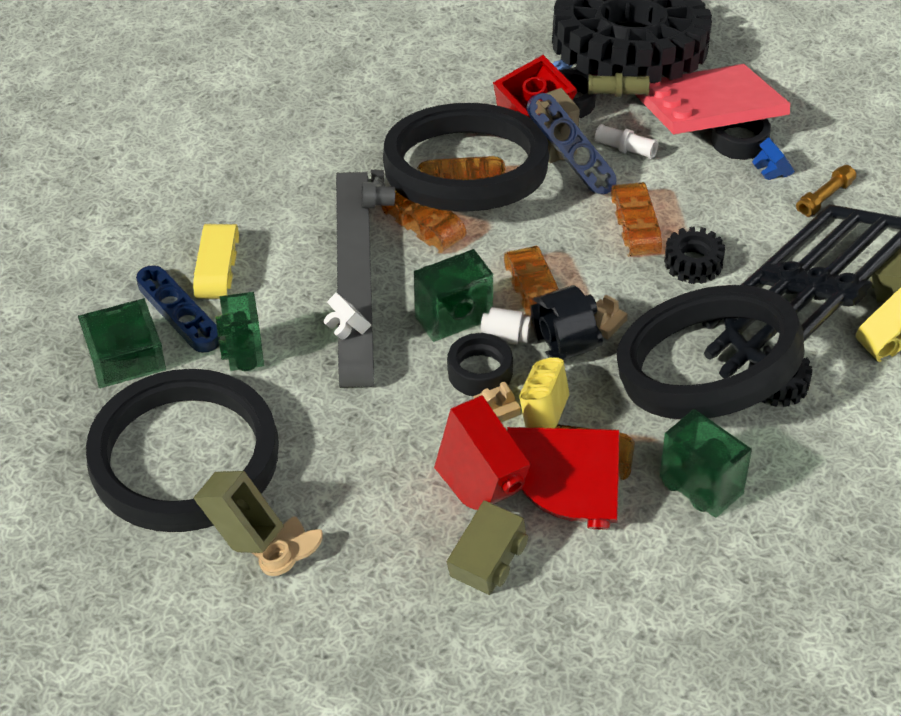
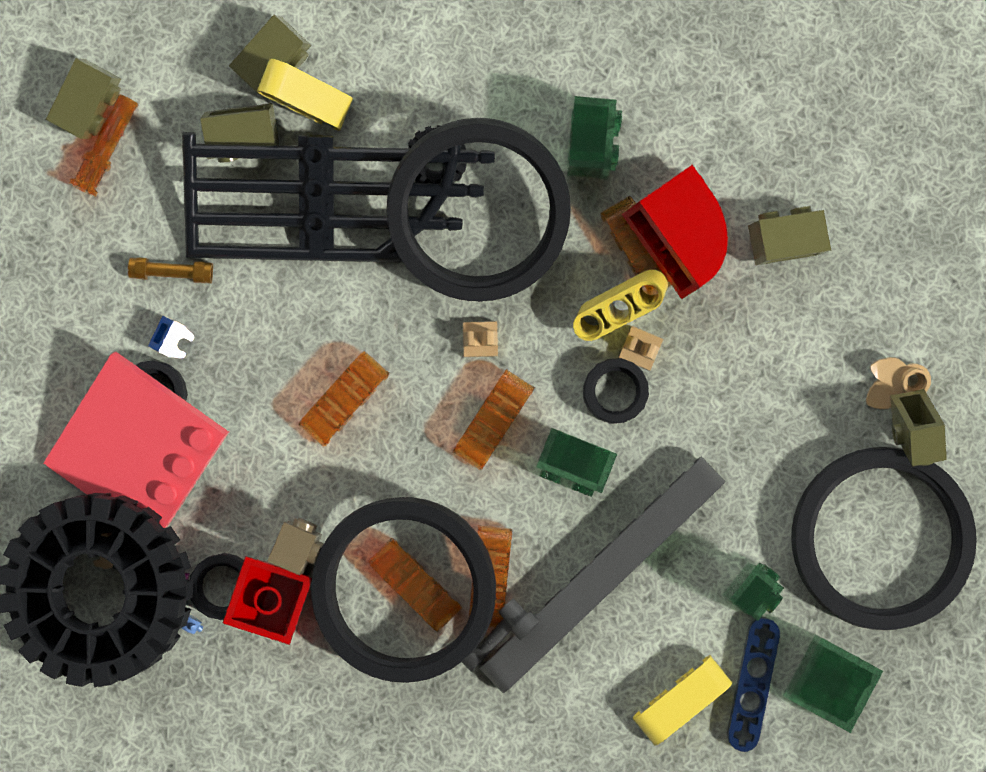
camera: 130 degrees left, 40 degrees up
(346, 315) = (675, 516): white tile -> none
(480, 455) = (736, 288): red brick -> none
(507, 324) = (558, 403): white brick -> none
(566, 322) = (529, 348): black brick -> none
(575, 140) = (314, 502): dark blue beam -> none
(618, 85) = (193, 534): olive pin -> none
(626, 141) = (245, 485): white pin -> none
(694, 267) = (330, 311): black tyre -> none

